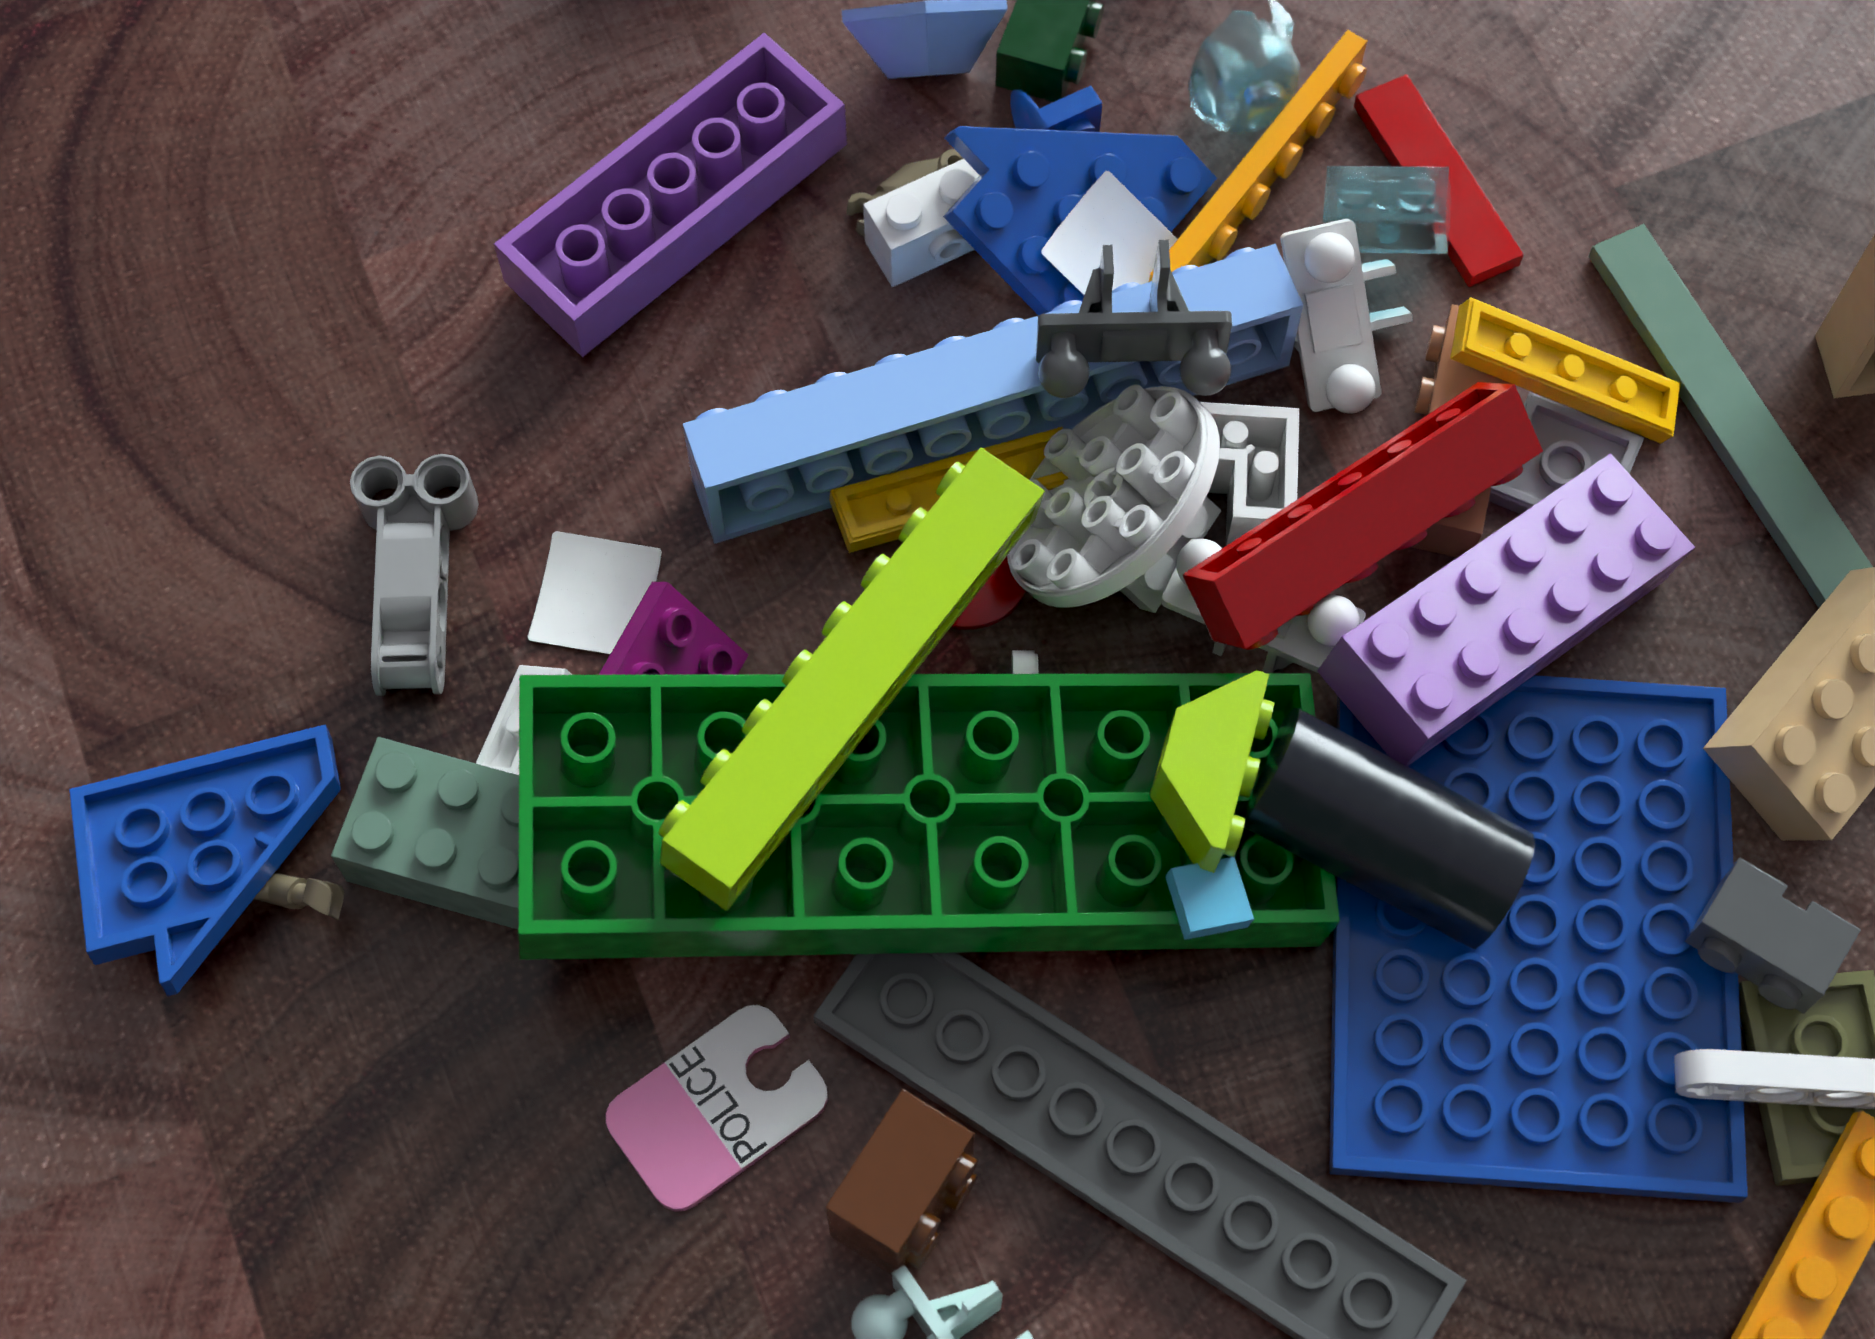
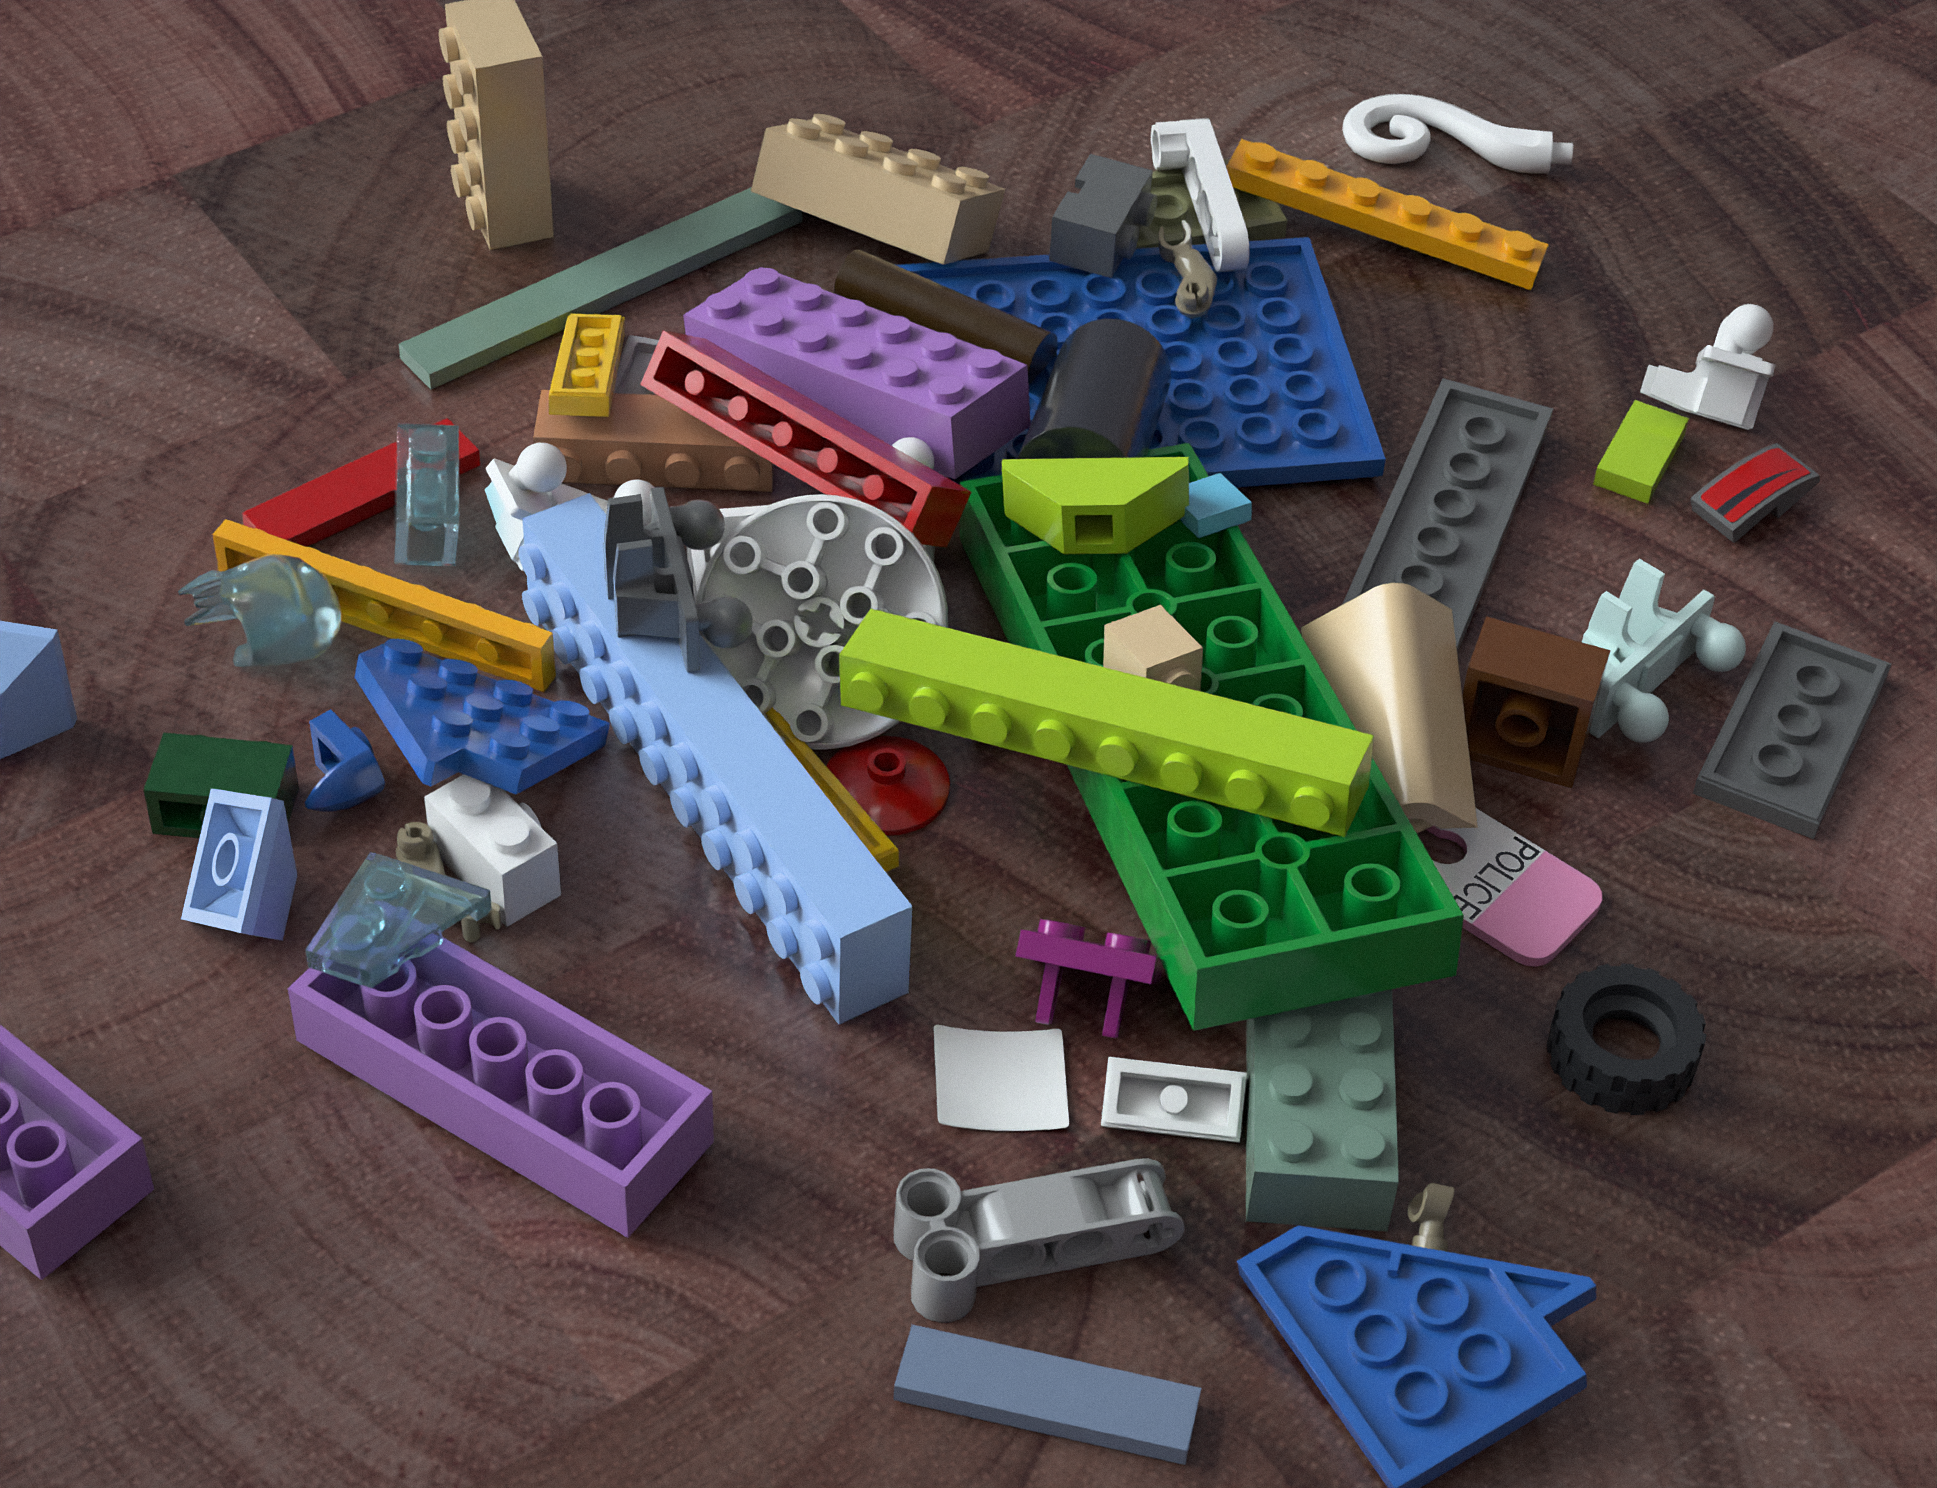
camera: 105 degrees left, 20 degrees down
(259, 559) = (1047, 1394): none -> sand blue tile
(446, 1112) = (1614, 1080): none -> black tyre
(812, 103) = (390, 917): none -> clear light blue wing
(888, 1023) = (1400, 680): none -> tan piece
(932, 744) = (1153, 648): none -> tan brick
(1107, 217) = (507, 685): white sticker -> none
(1610, 731) = (944, 310): none -> dark brown brick
(1657, 1031) = (1198, 280): none -> dark tan arm

